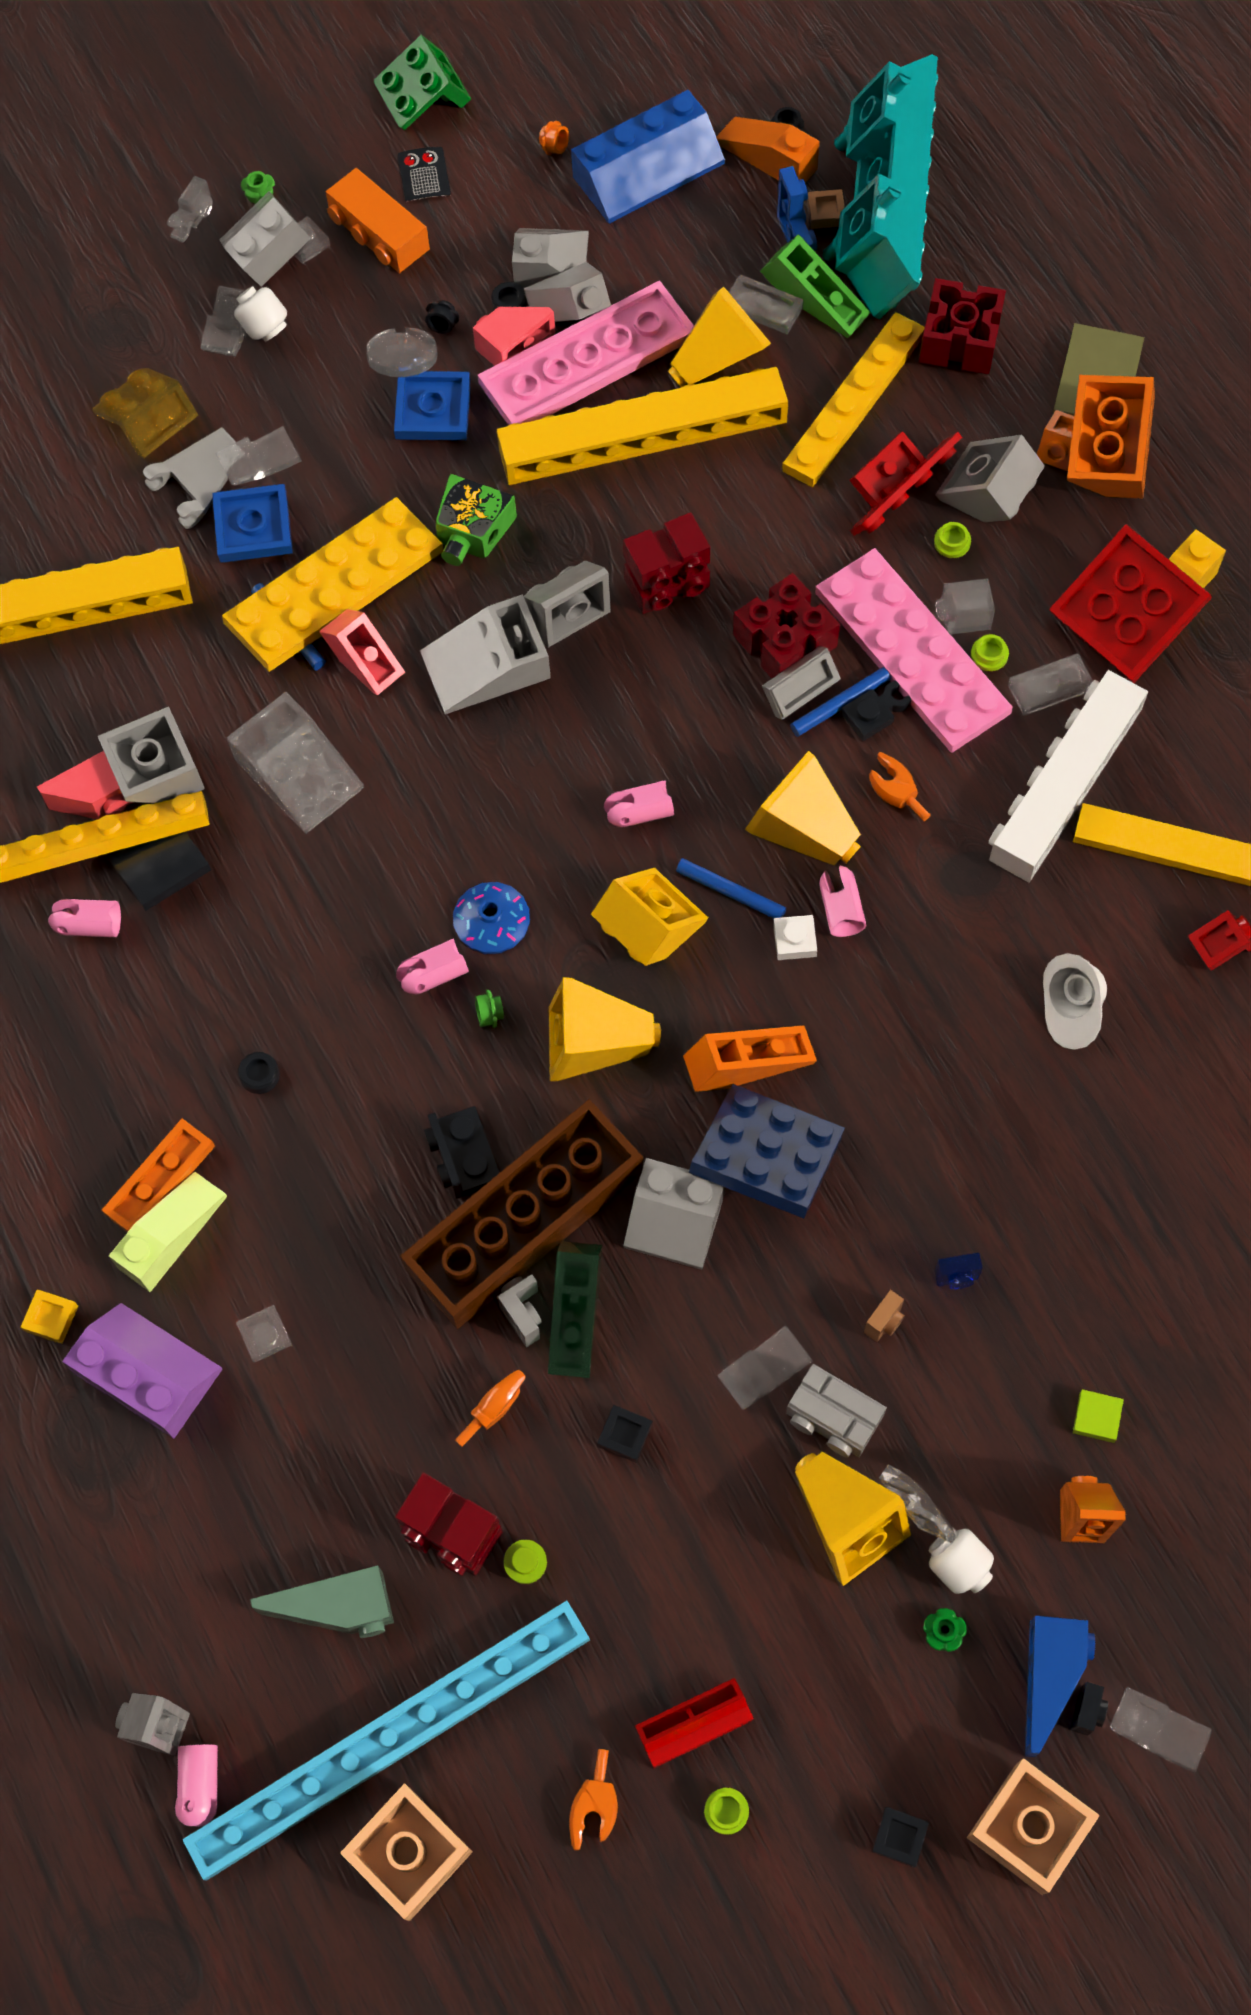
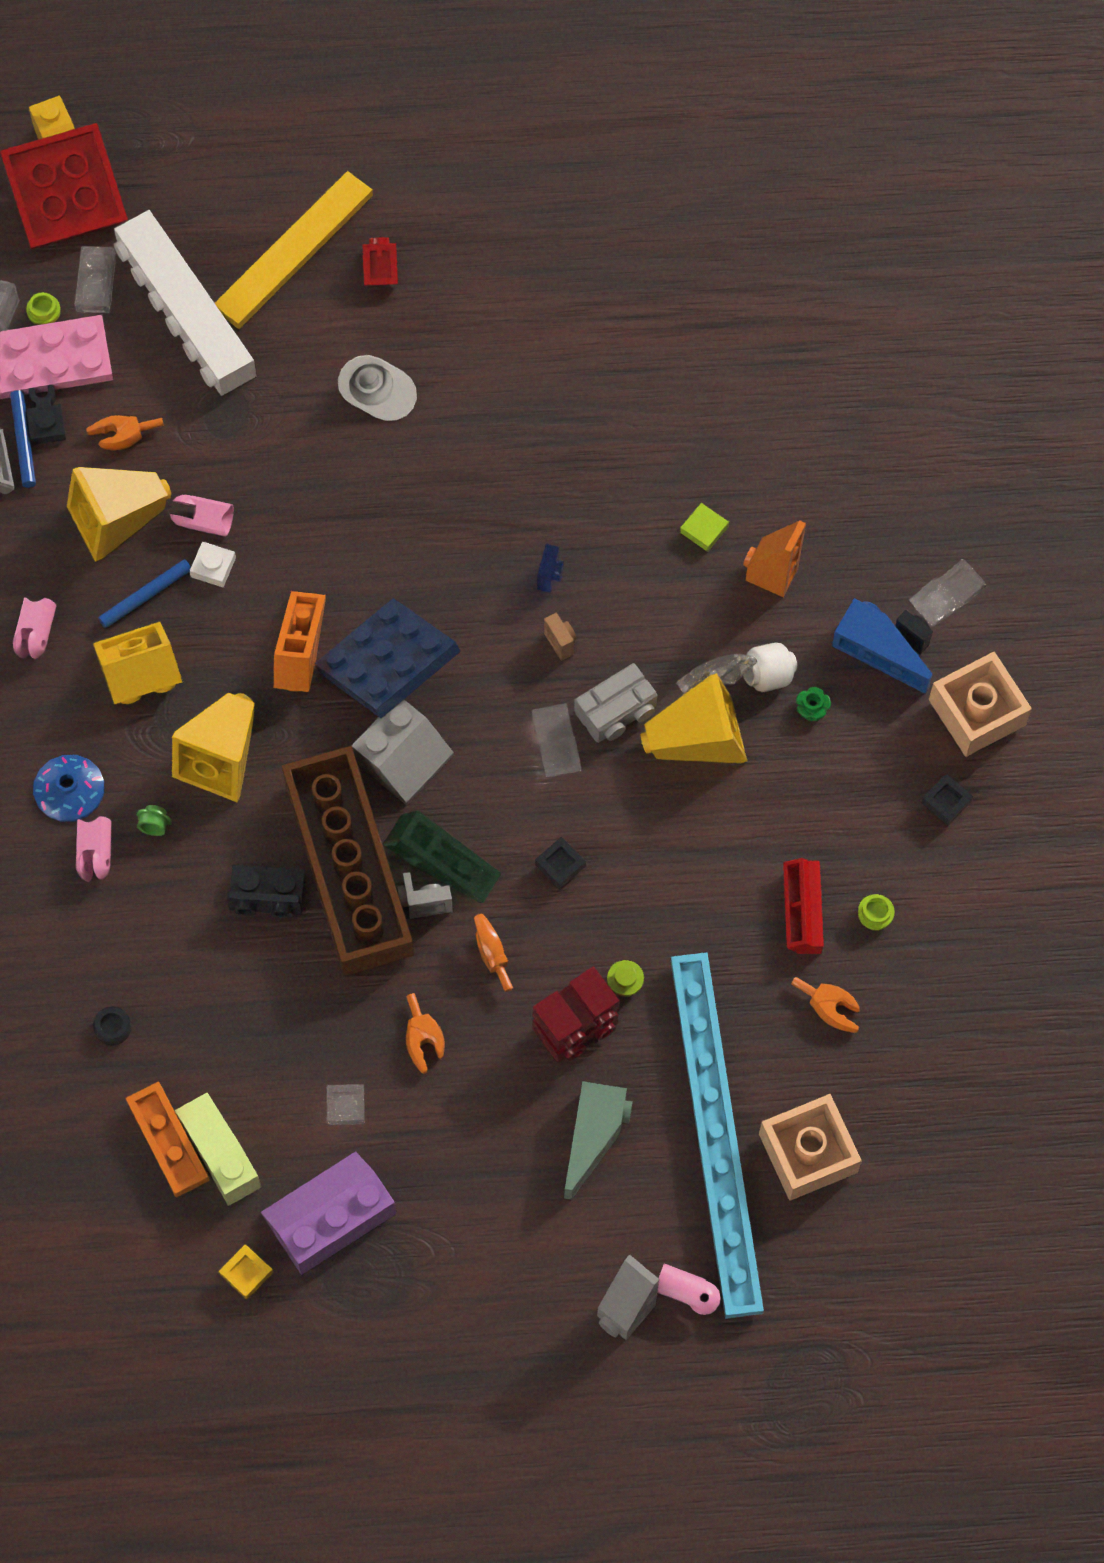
camera: 70 degrees left, 0 degrees up
(375, 1372) = (422, 1030): none -> orange hand

